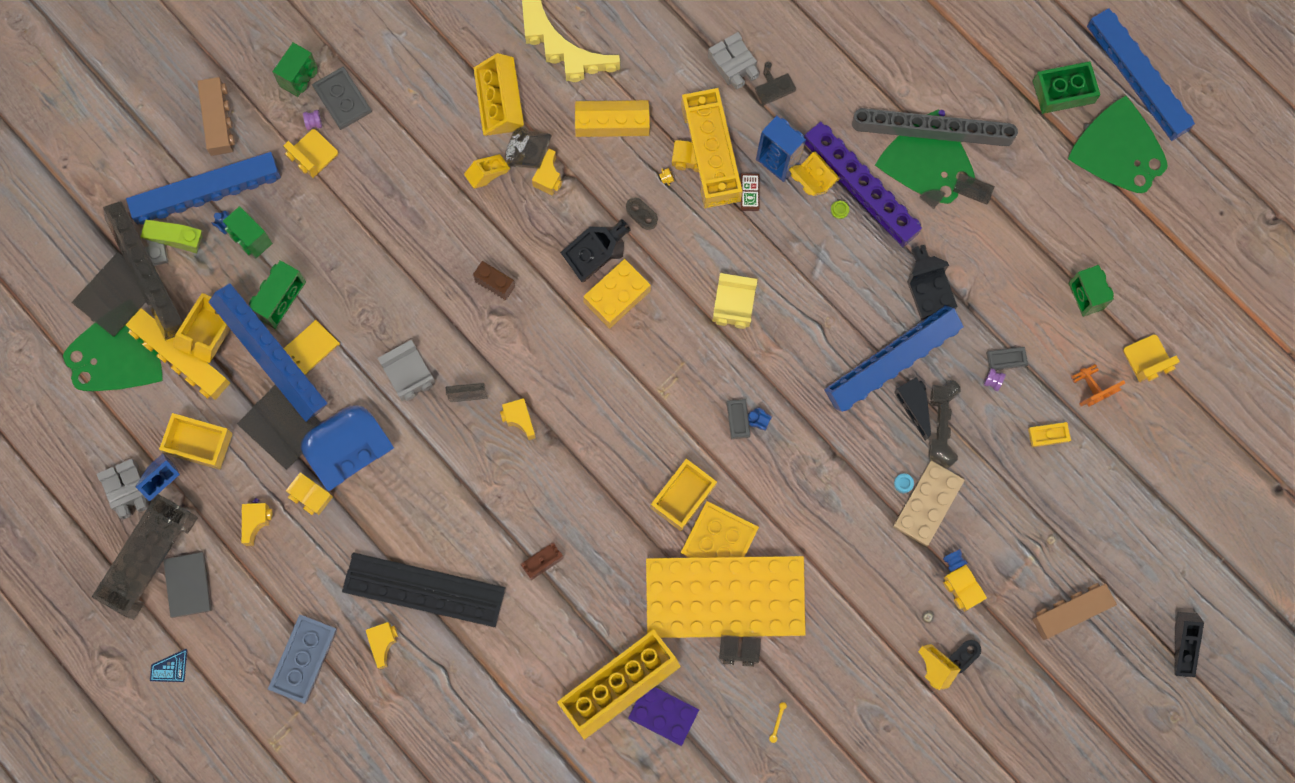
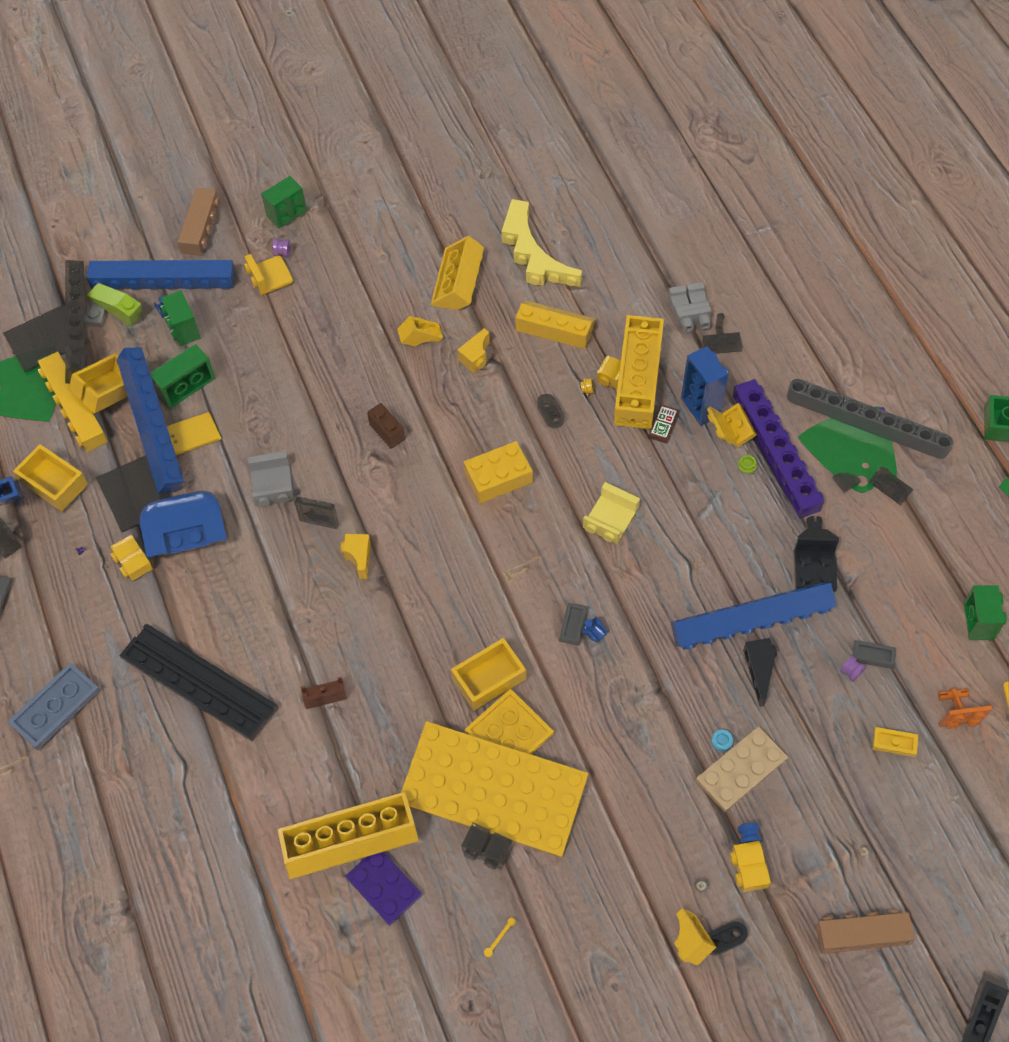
camera: 25 degrees right, 15 degrees down
(253, 519) = (70, 563): yellow arch -> none
(341, 98) = (316, 239): dark grey tile -> none
(380, 640) = (135, 713): yellow arch -> none
(527, 148) = (464, 323): clear smoke slope -> none
(595, 249) = (492, 425): black plate -> none
(938, 448) = (770, 716): clear smoke plate -> none

